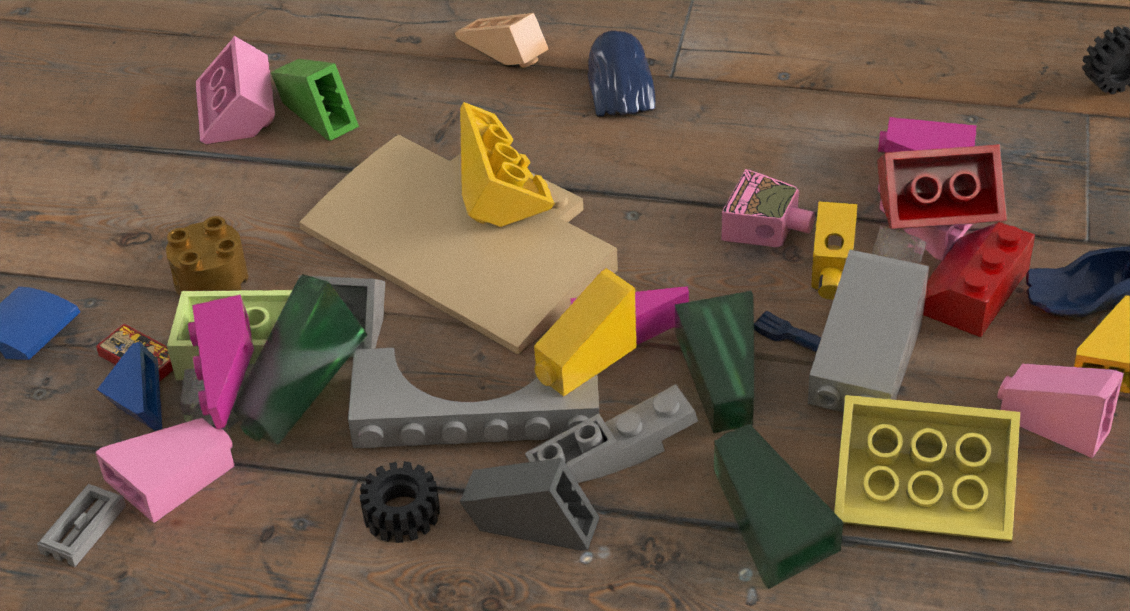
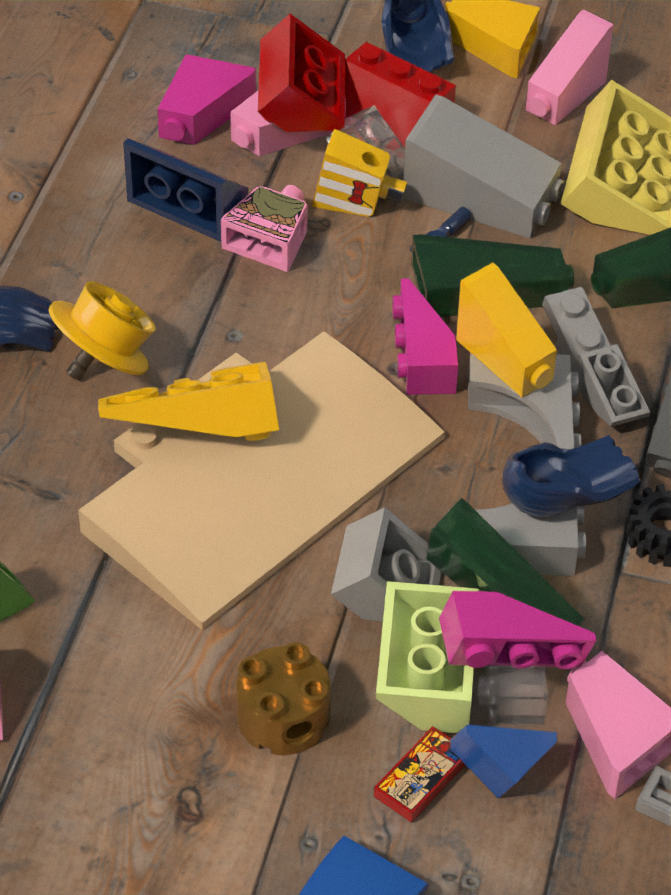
camera: 90 degrees left, 5 degrees up
(411, 389) = (555, 479): none -> dark blue hair
(584, 118) = (104, 328): none -> yellow piece
(795, 139) = (179, 189): none -> dark blue slope

